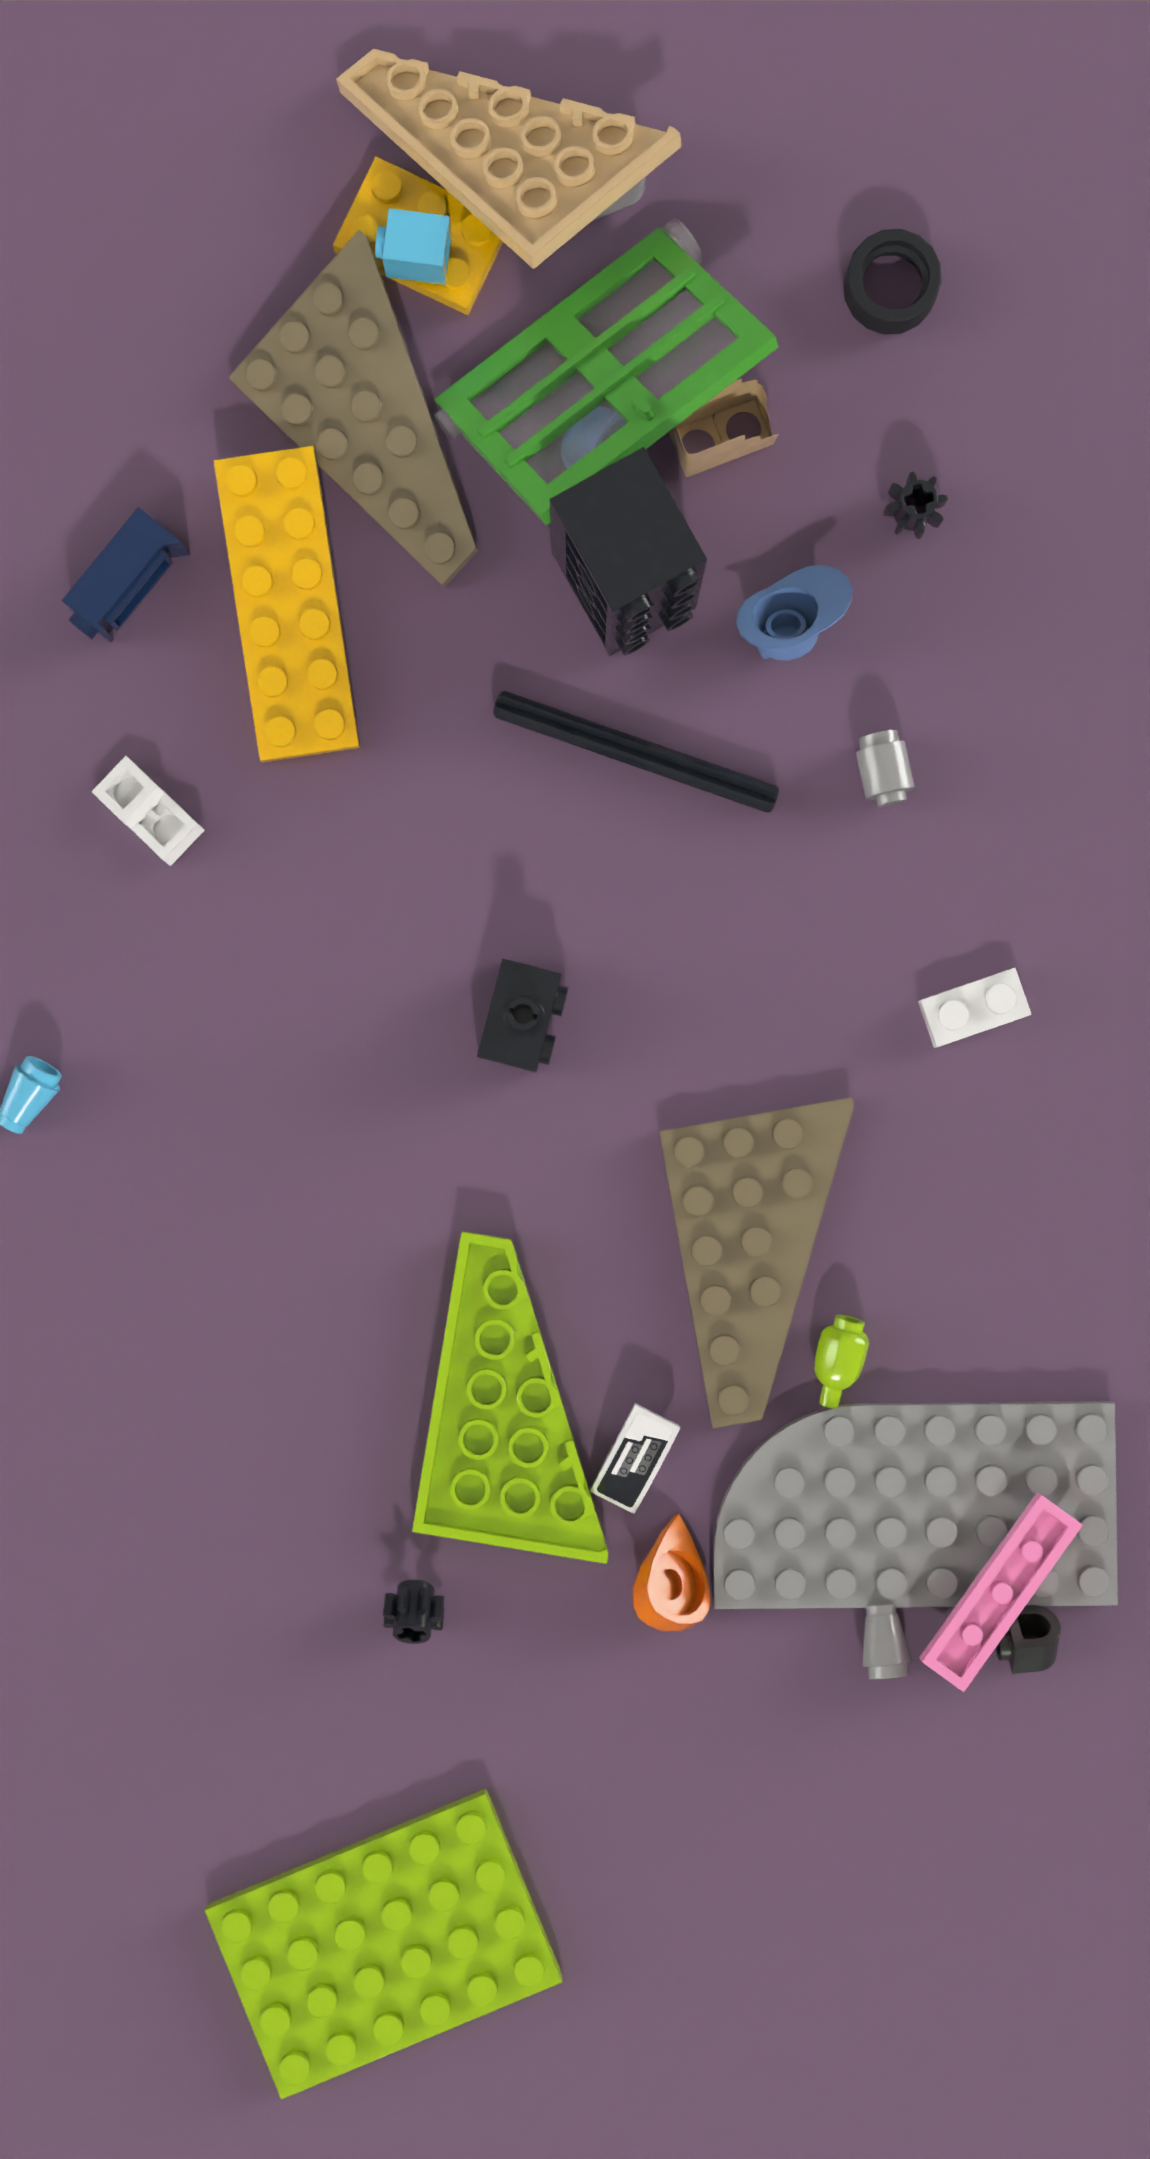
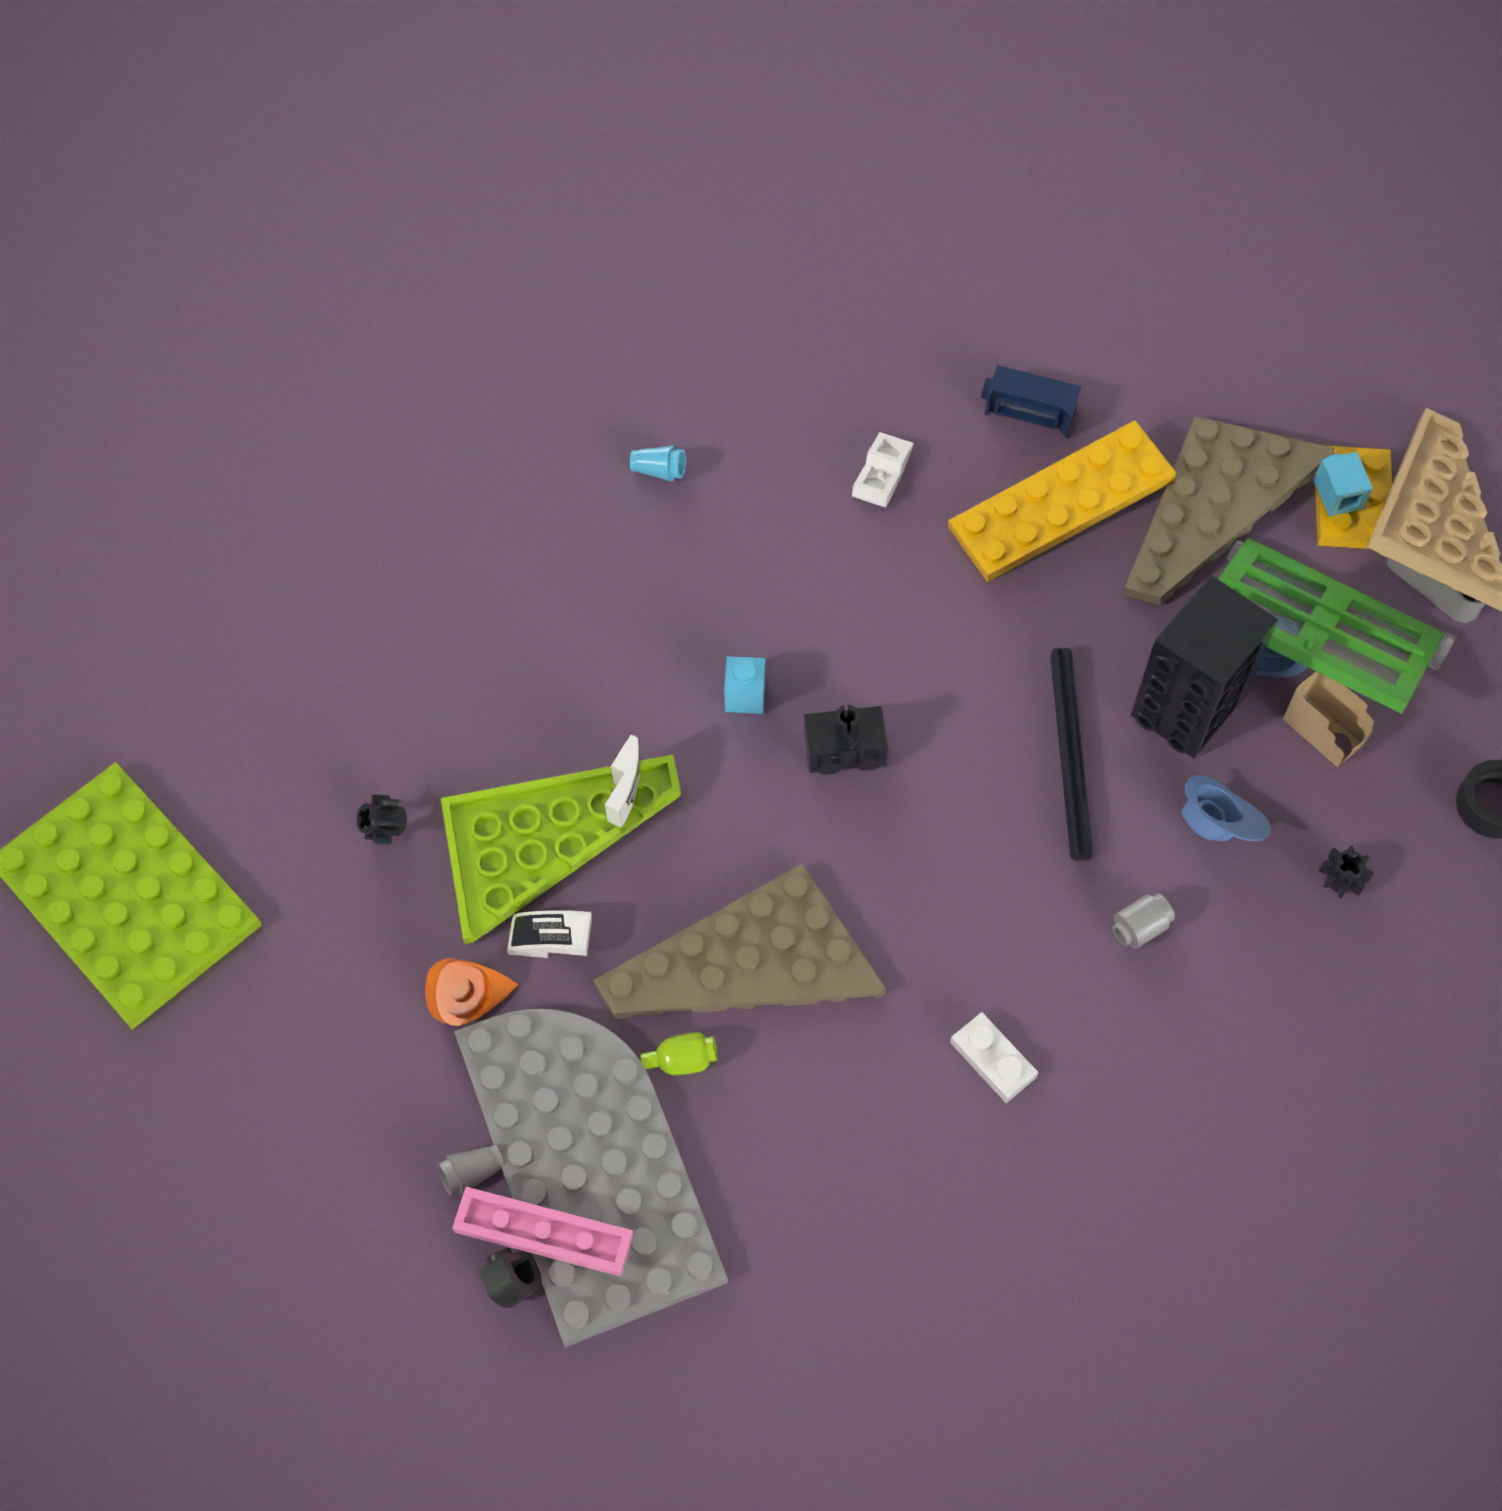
camera: 70 degrees right, 25 degrees down
(400, 1109) = (744, 685): none -> medium azure brick
(474, 1298) = (626, 776): none -> white slope

